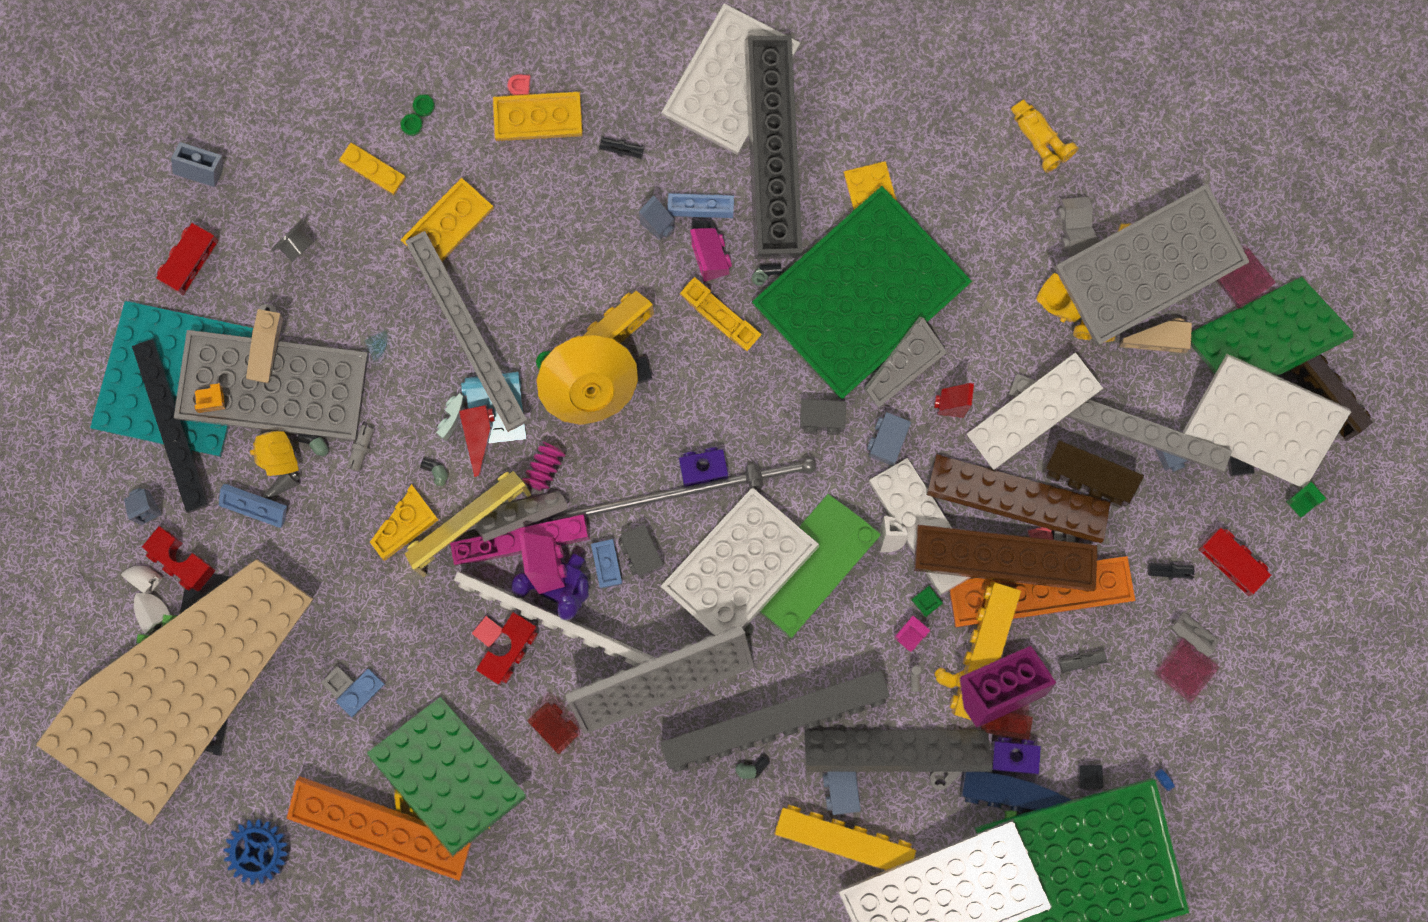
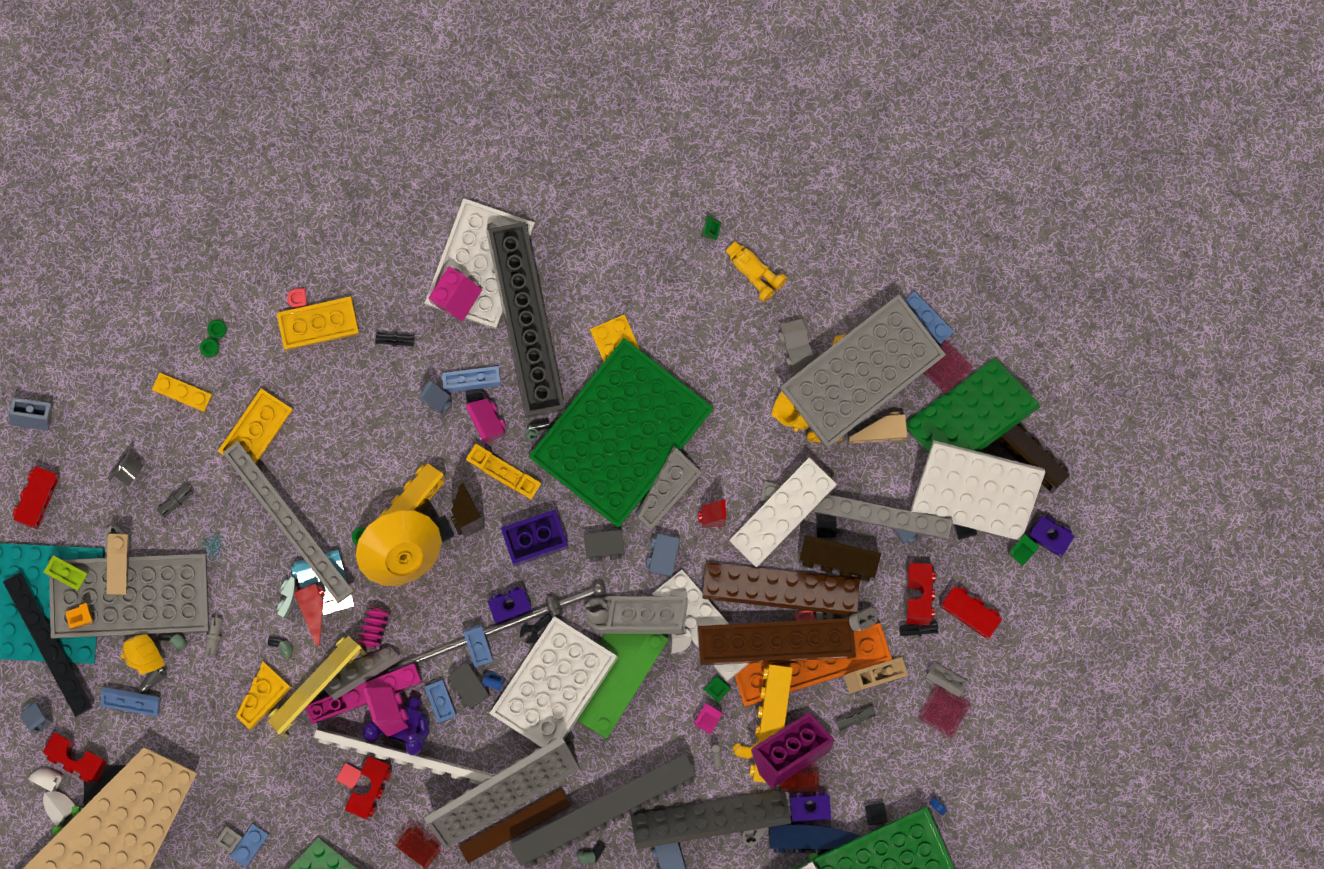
camera: 10 degrees left, 0 degrees up
(202, 346) = (65, 573): none -> lime plate
(343, 288) = (175, 500): none -> dark grey pin
(659, 506) = (477, 645): none -> medium blue plate
(668, 721) = (514, 826): none -> reddish brown tile
(671, 354) = (465, 514): none -> dark brown slope
(671, 550) = (494, 681): none -> blue tile
(697, 106) = (455, 294): none -> dark pink slope
(743, 489) = (536, 628): none -> black bar
(744, 394) = (534, 538): none -> dark purple brick
(849, 501) = (637, 614): none -> light grey plate
(998, 81) = (711, 228): none -> green slope
(1081, 436) = (826, 527): none -> black plate
(1109, 548) = (860, 621): none -> light grey beam
(1113, 615) = (875, 675): none -> tan slope
(1182, 512) = (921, 578): none -> red arch
(1238, 224) = (927, 316): none -> medium blue plate
(1354, 489) = (1056, 546): none -> dark purple brick

